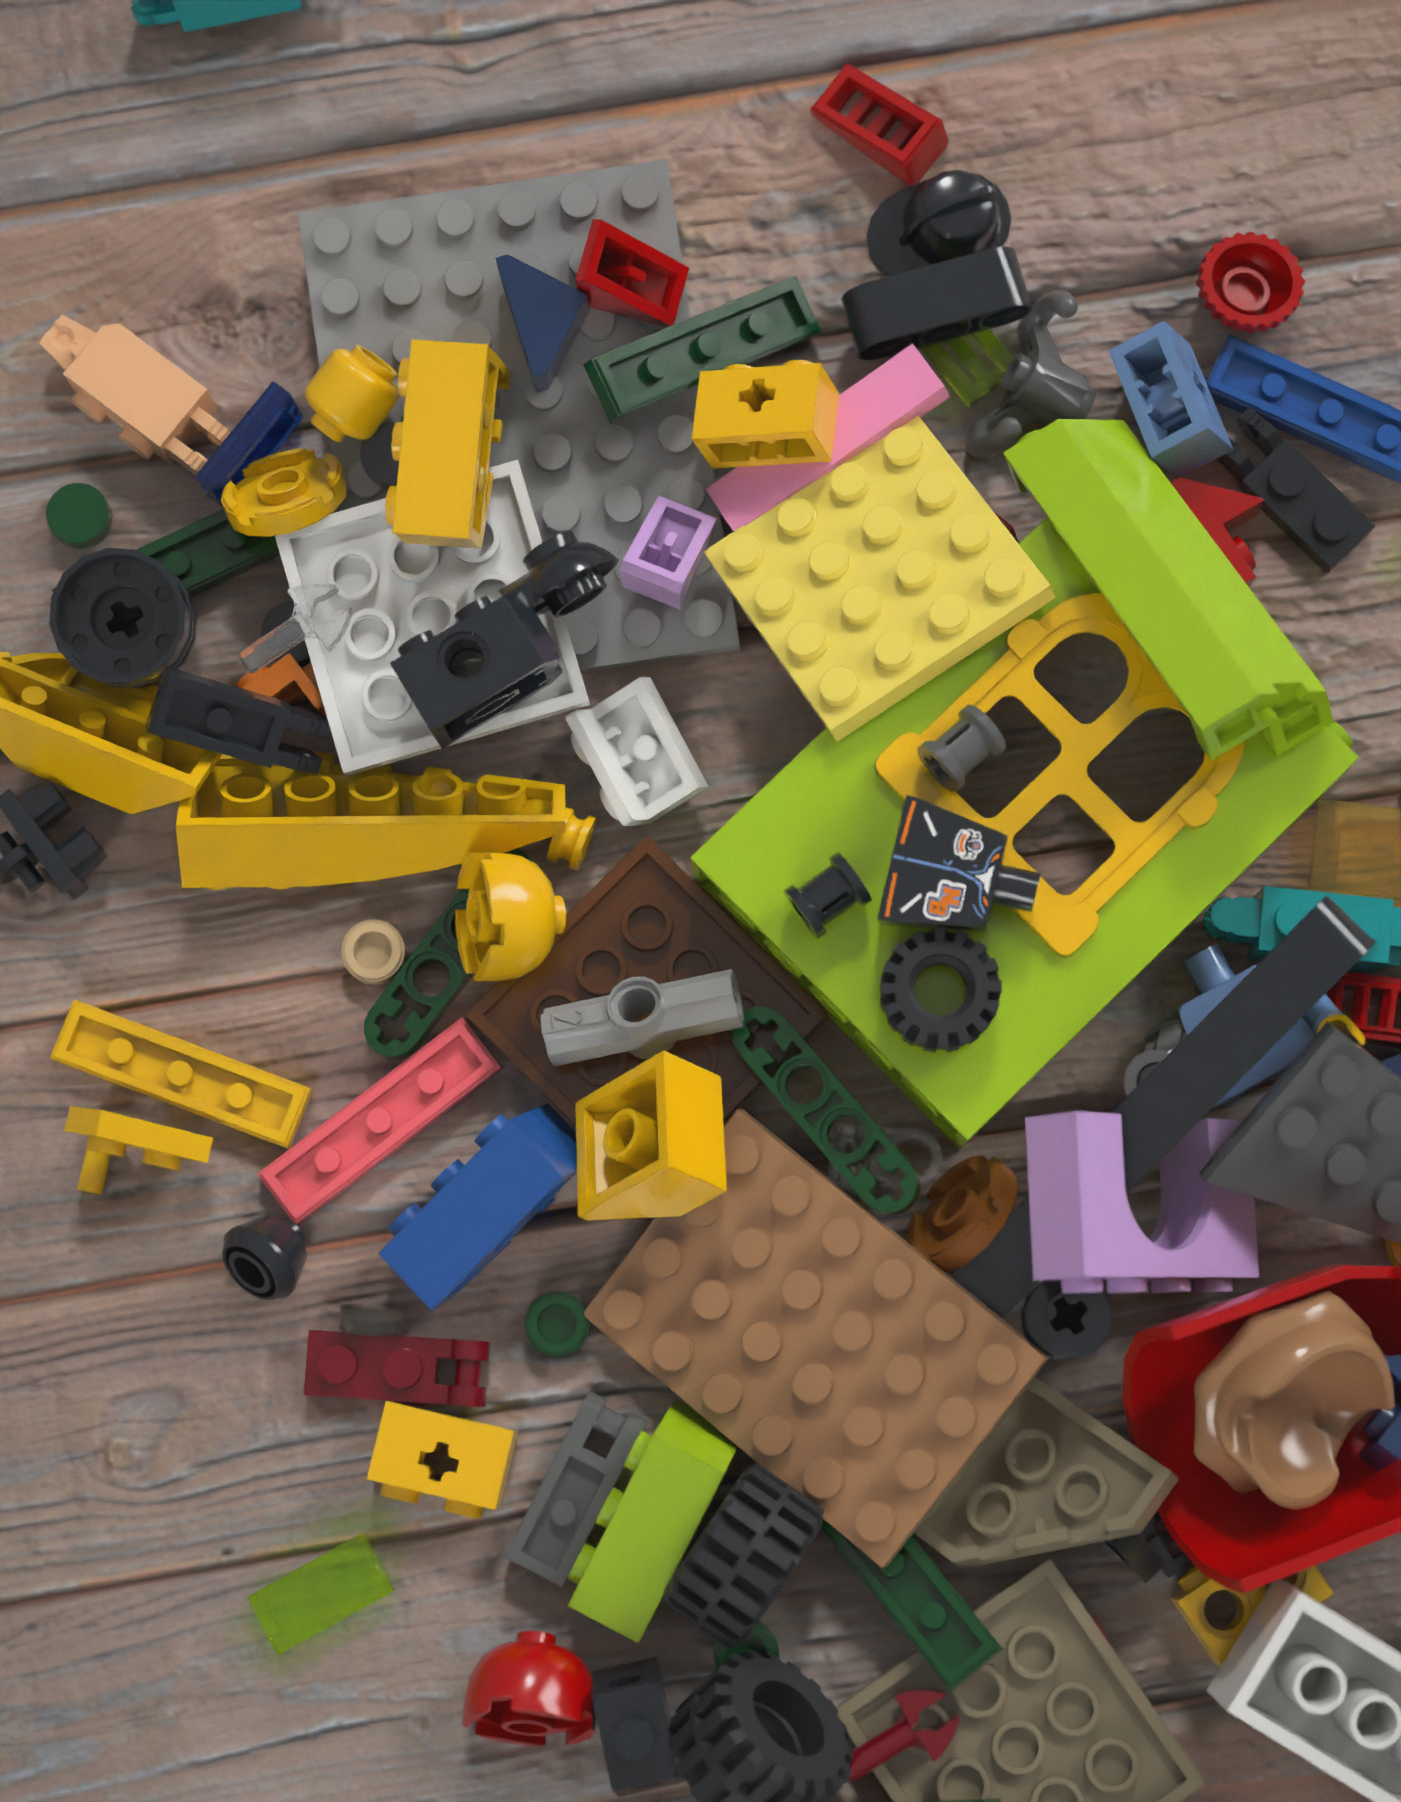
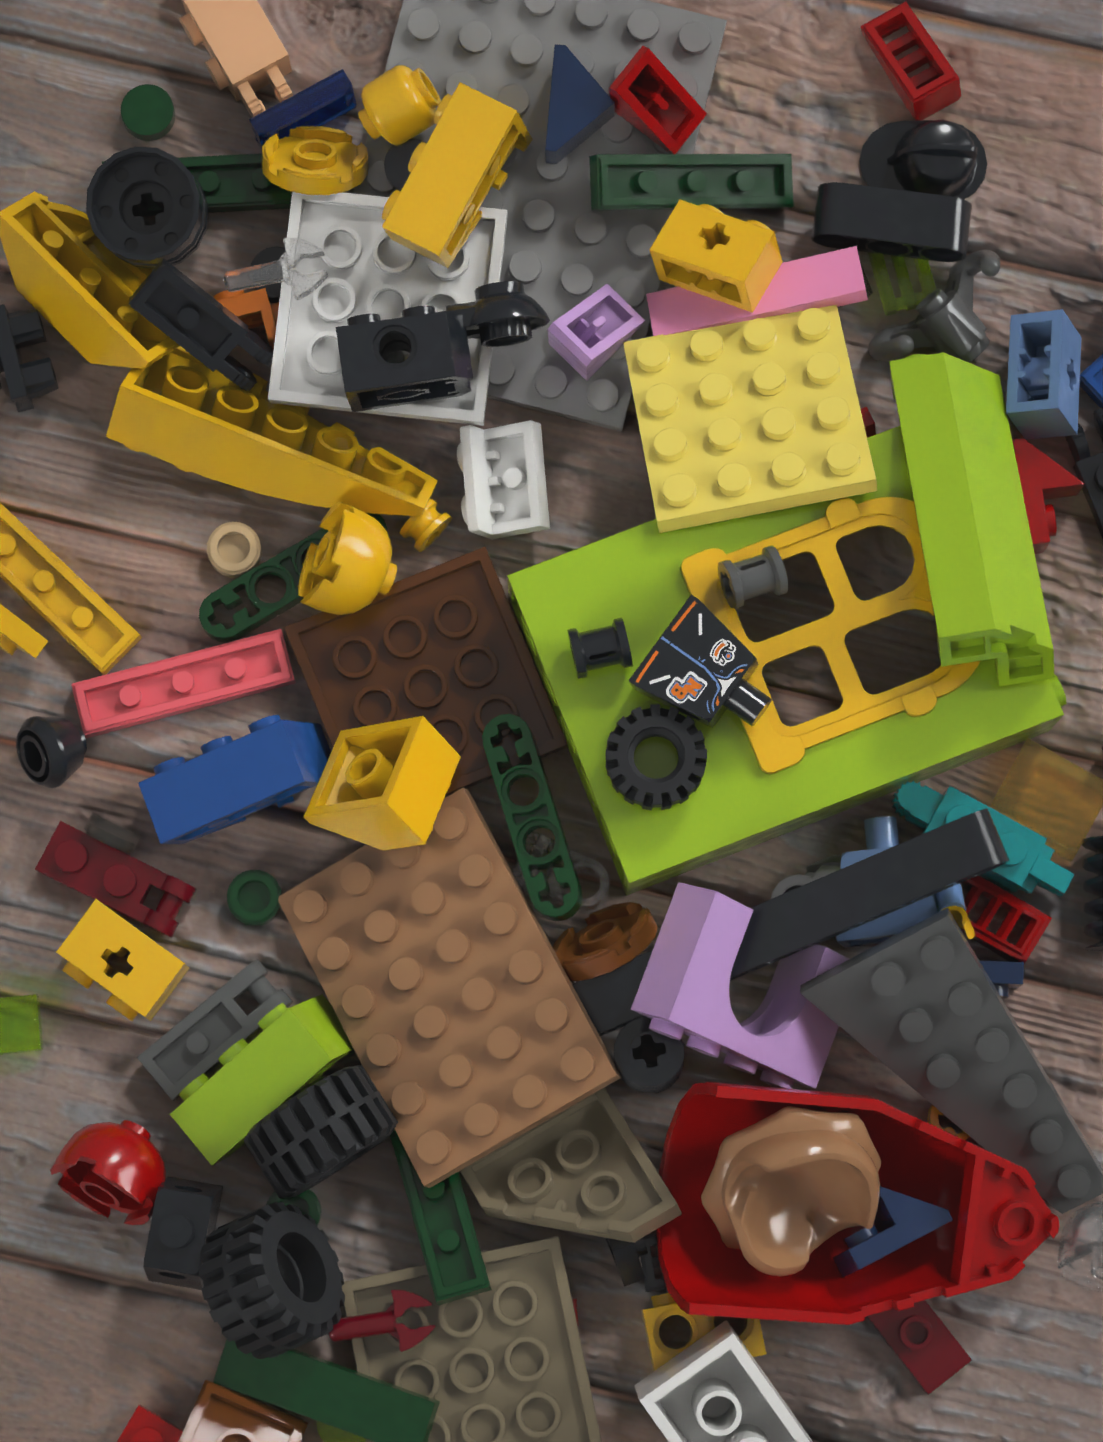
camera: 15 degrees right, 0 degrees up
(608, 1022) = (396, 680): light grey piece -> none

